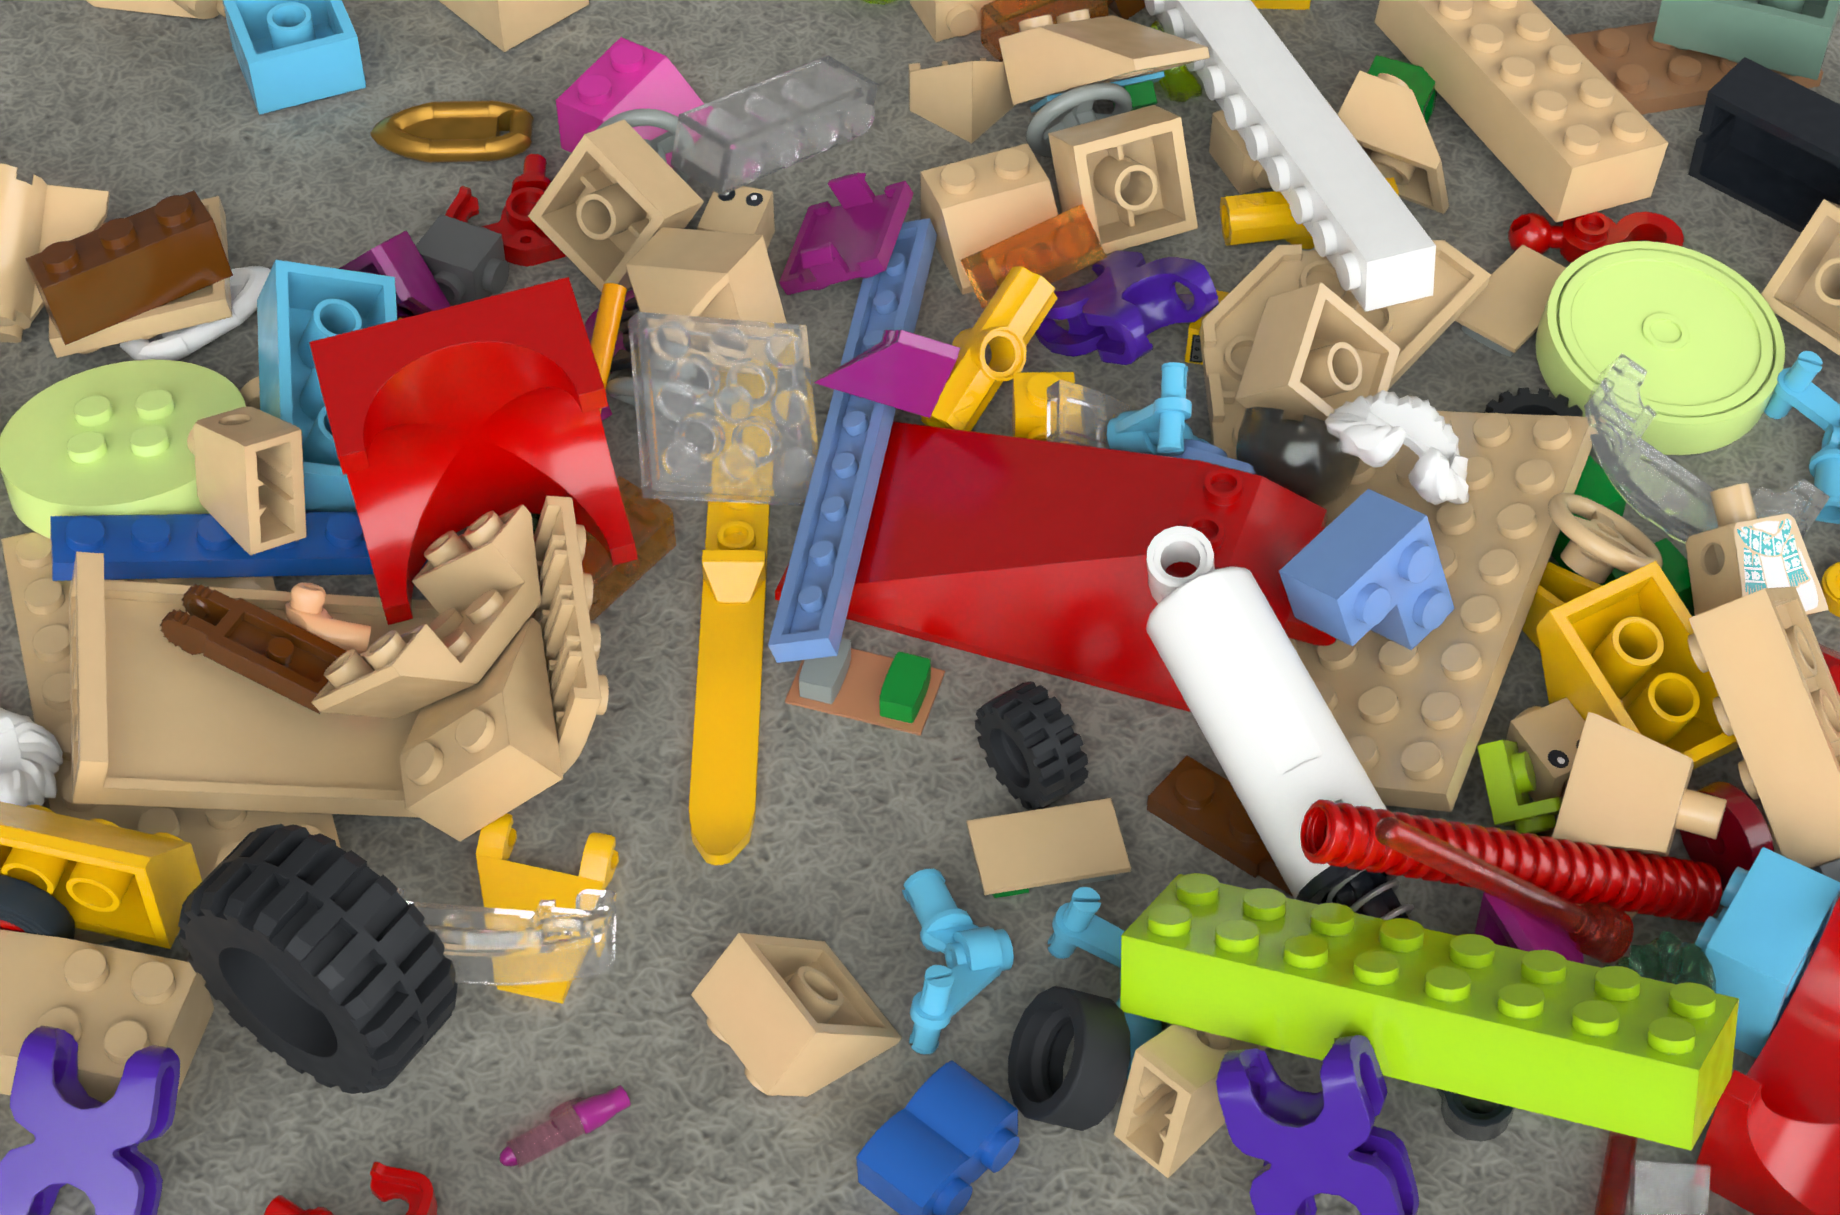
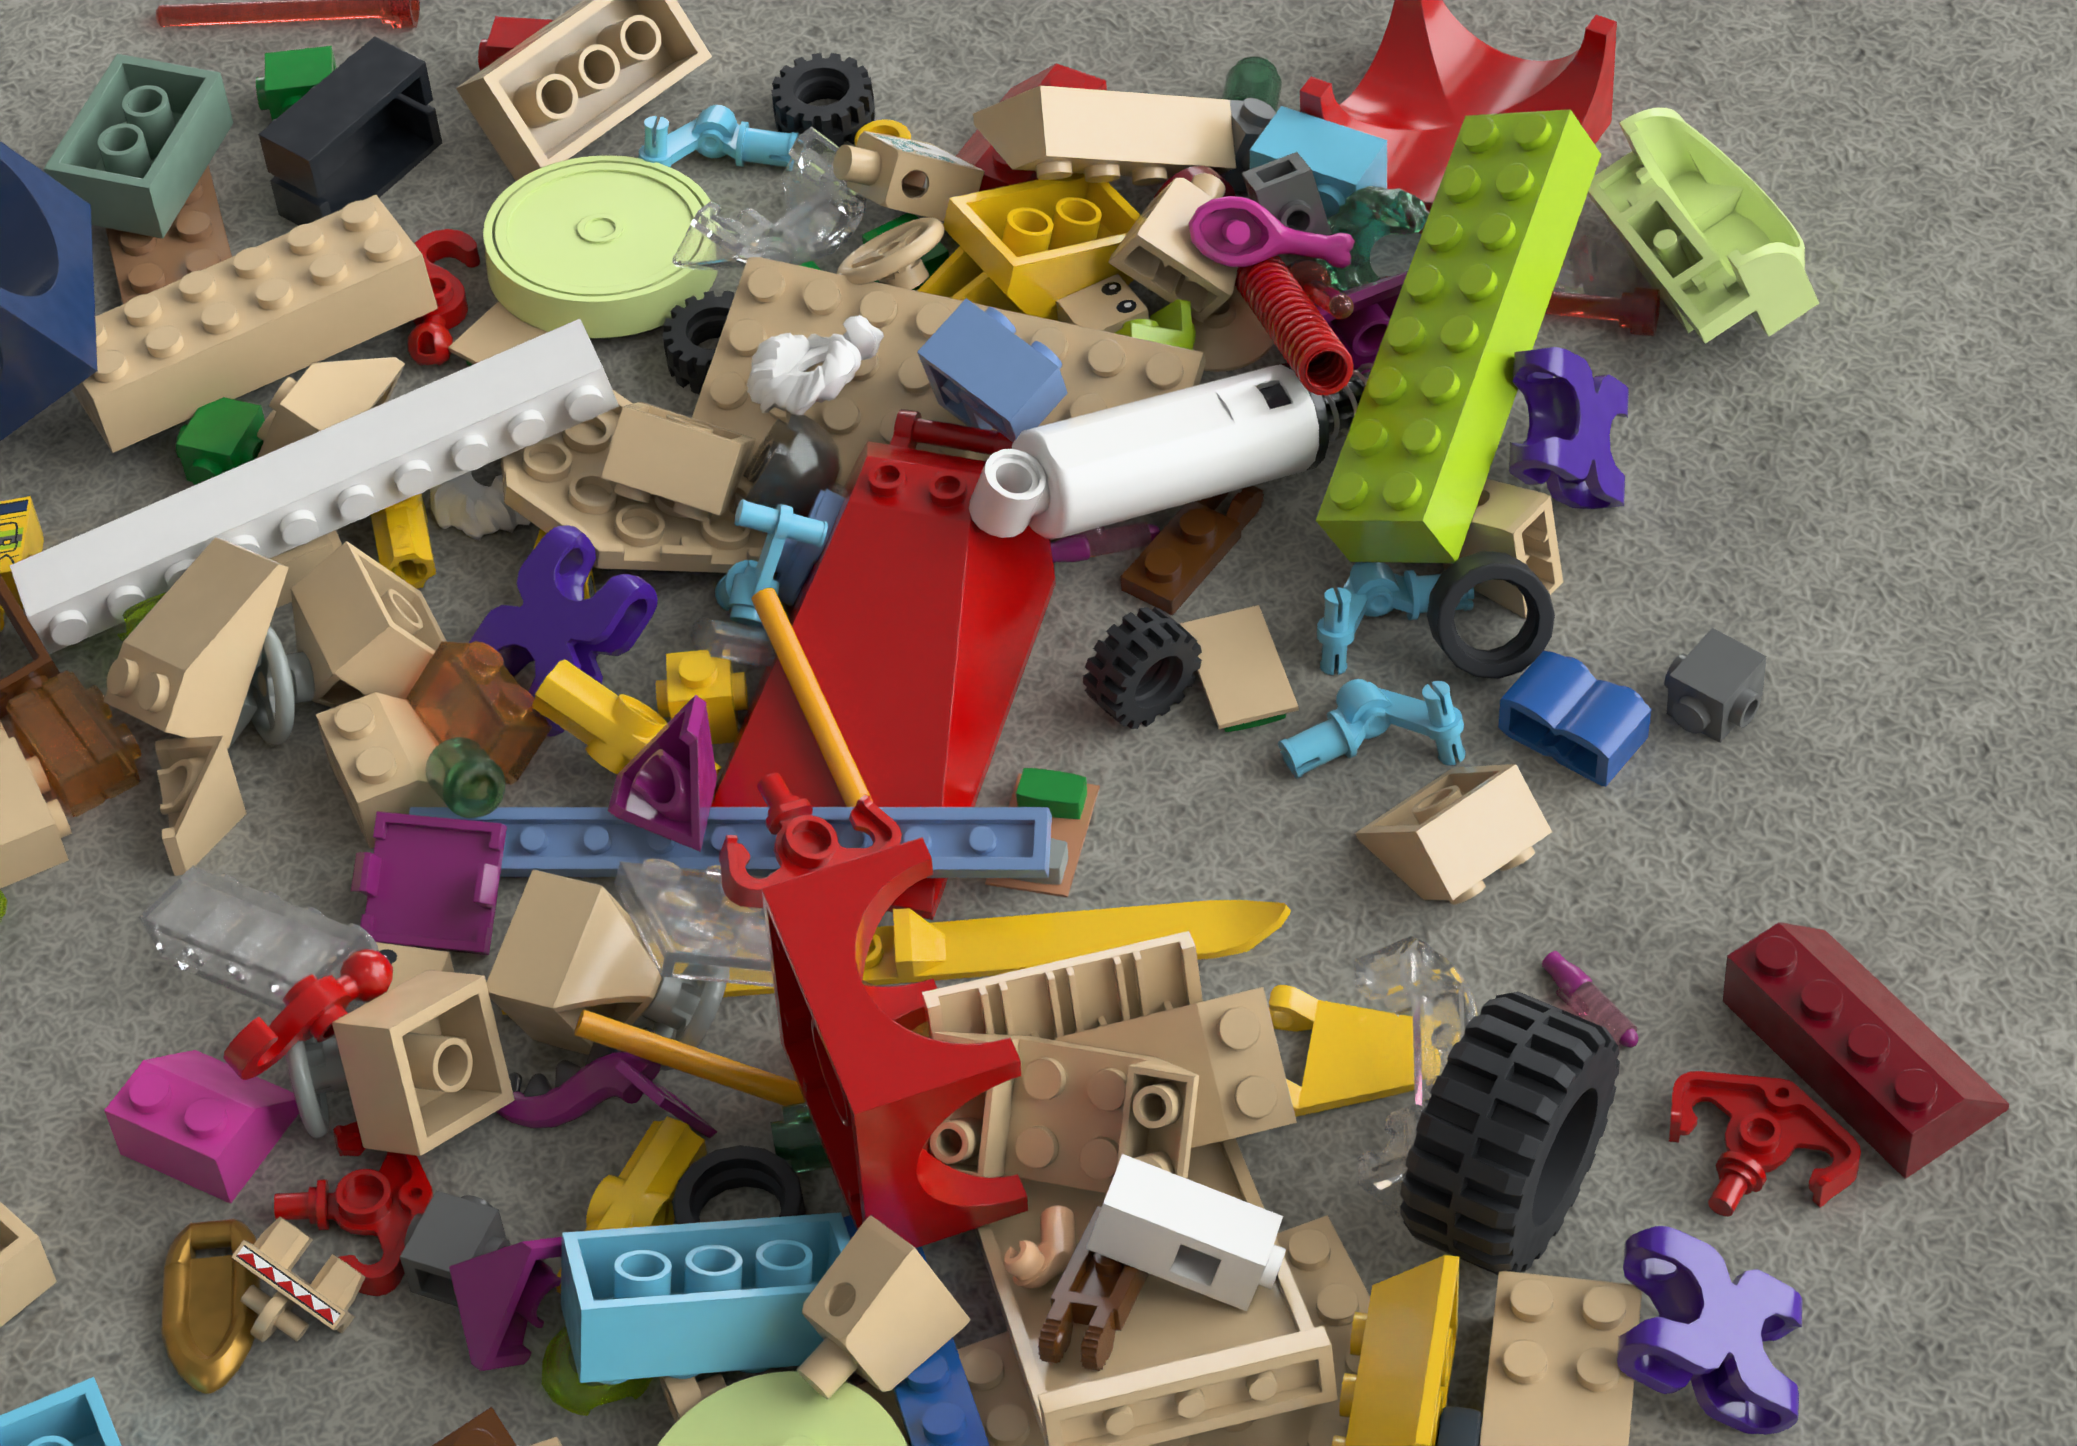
camera: 90 degrees left, 0 degrees up
(268, 689) = (1187, 1233): none -> white brick
(438, 161) = (272, 1261): none -> tan hips
(649, 115) = (309, 1012): none -> red piece
(775, 453) = (801, 843): none -> red piece
(932, 234) = (465, 777): none -> clear green brick
(989, 466) = (809, 696): none -> light orange piece
(1605, 829) = (1245, 233): none -> dark pink piece
(1673, 876) = (1288, 193): none -> dark grey brick

